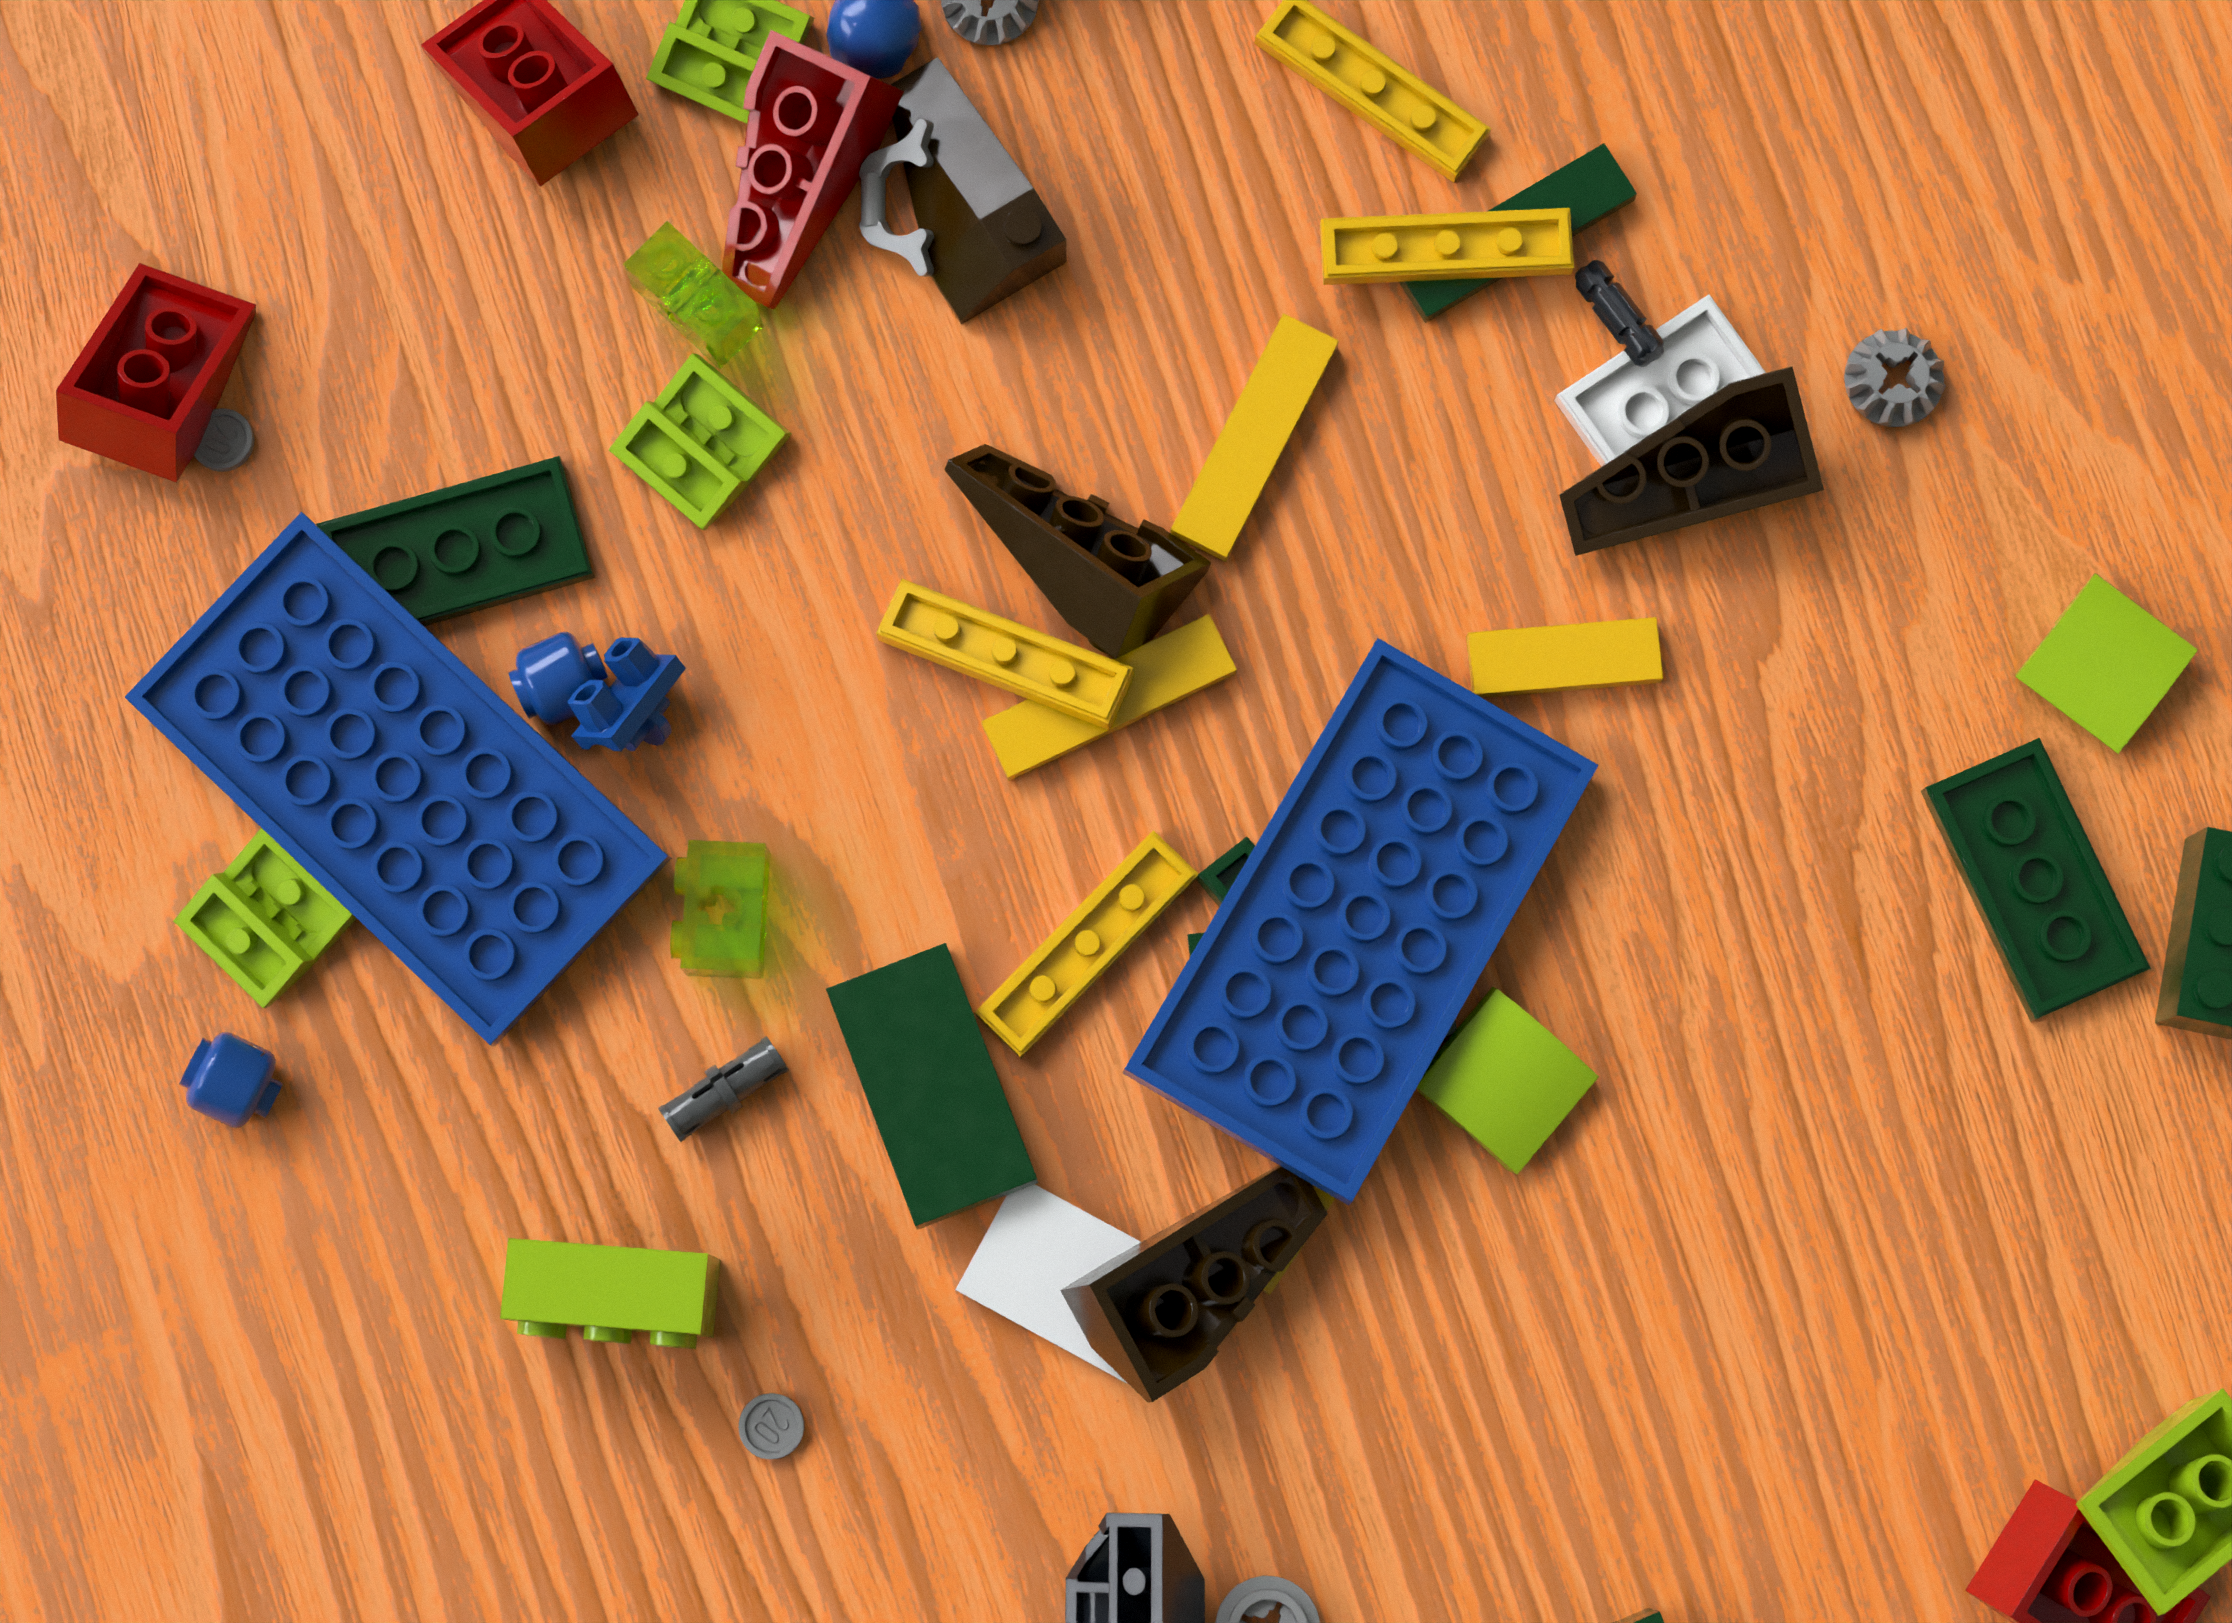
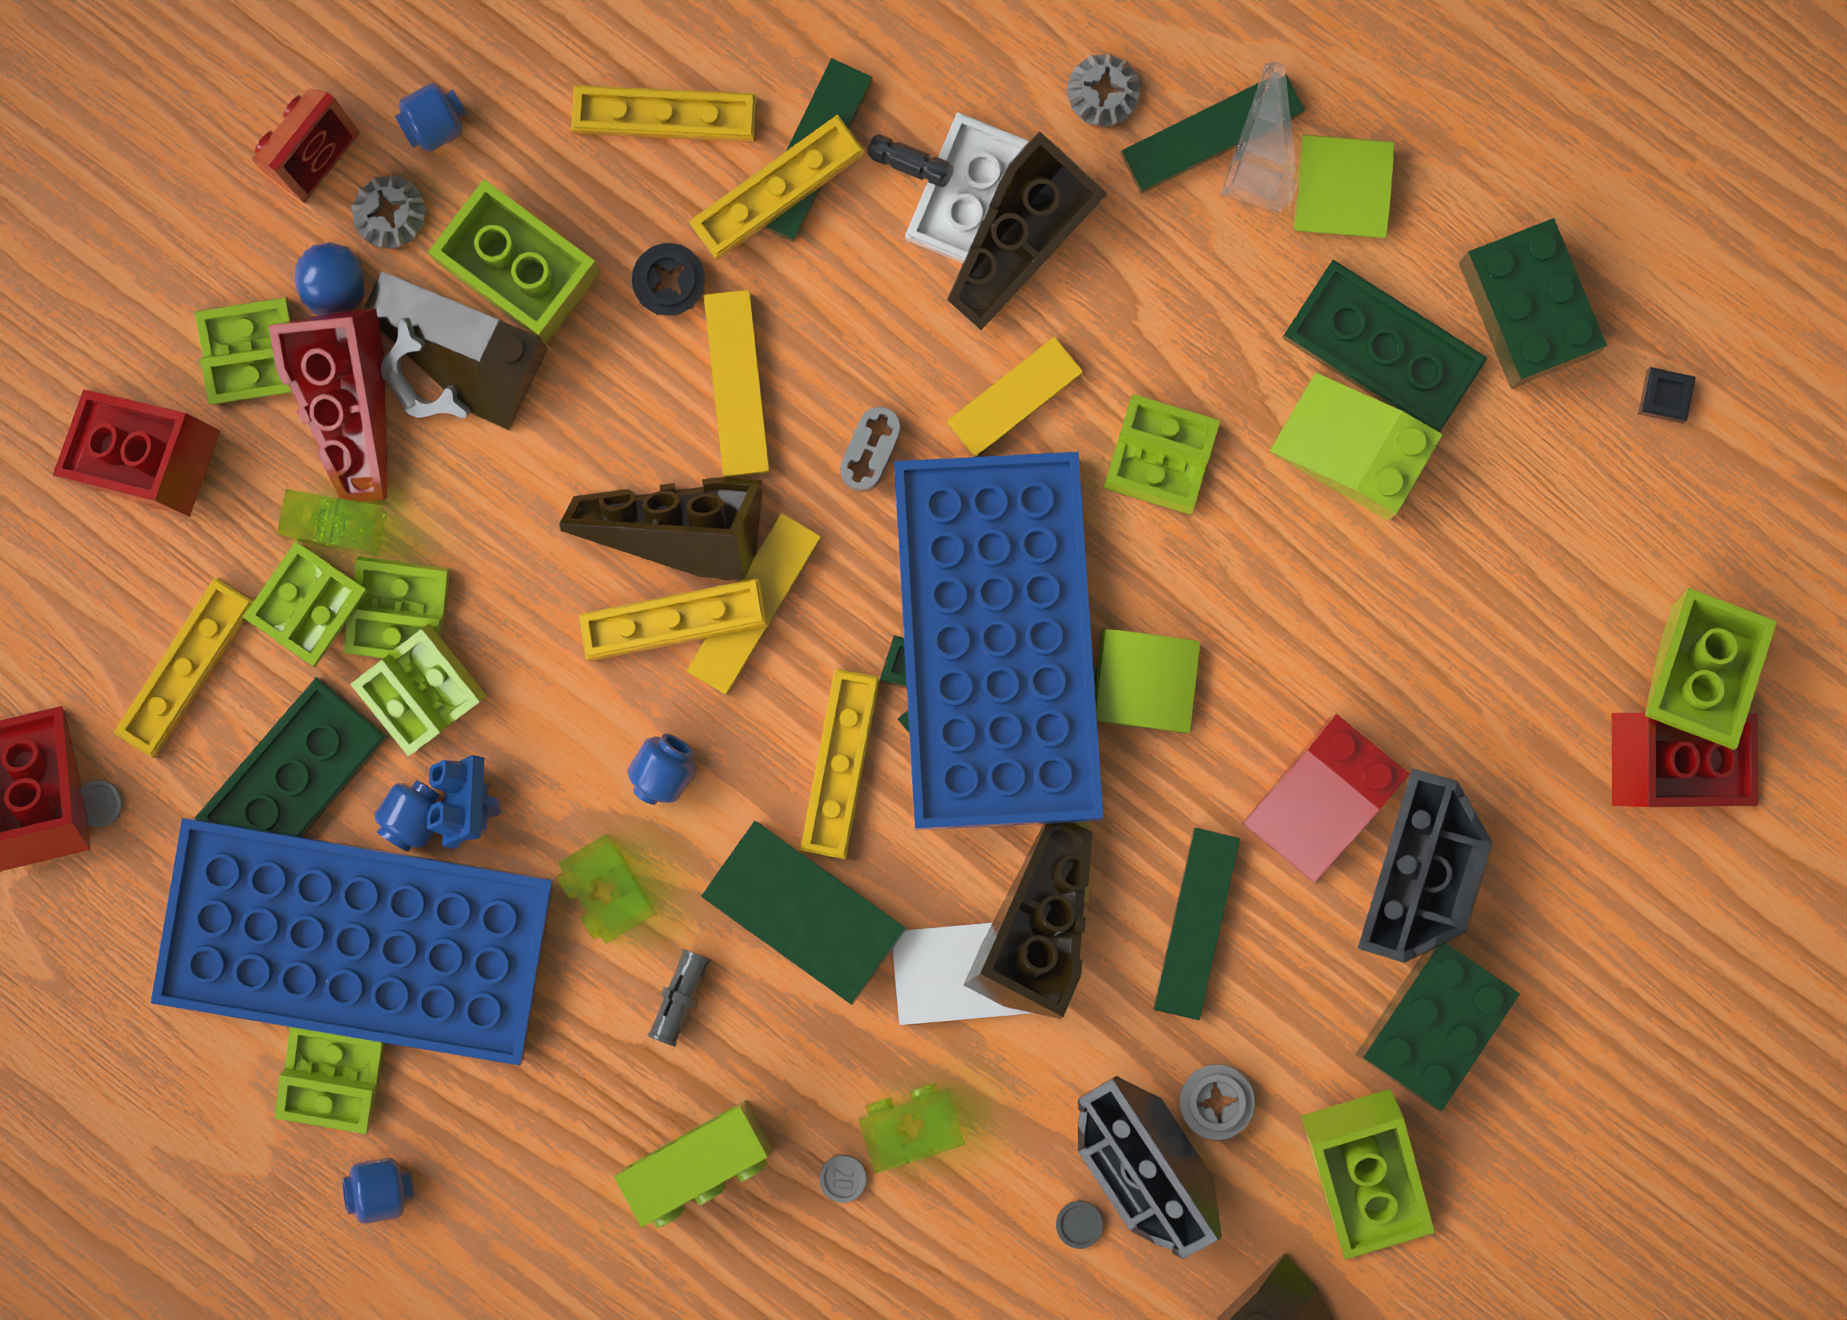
camera: 30 degrees left, 5 degrees up
(420, 351) = (184, 668): none -> yellow tile
(602, 366) = (305, 604): none -> lime slope
(664, 544) = (418, 689): none -> lime slope
(849, 1425) = (893, 1149): none -> clear neon green brick
(878, 814) = (662, 769): none -> blue head
(1094, 137) = (514, 261): none -> lime brick
(1273, 250) = (670, 258): none -> black gear
(1367, 621) = (860, 444): none -> light grey beam
(1379, 1403) = (1196, 923): none -> dark green tile
(1628, 1355) = (1325, 797): none -> slope
(1693, 832) = (1161, 454): none -> lime slope
(1695, 1518) = (1428, 871): none -> black wedge
(1929, 968) = (1356, 445): none -> lime slope
(1991, 504) = (1194, 139): none -> dark green tile
(2038, 565) = (1265, 154): none -> clear slope

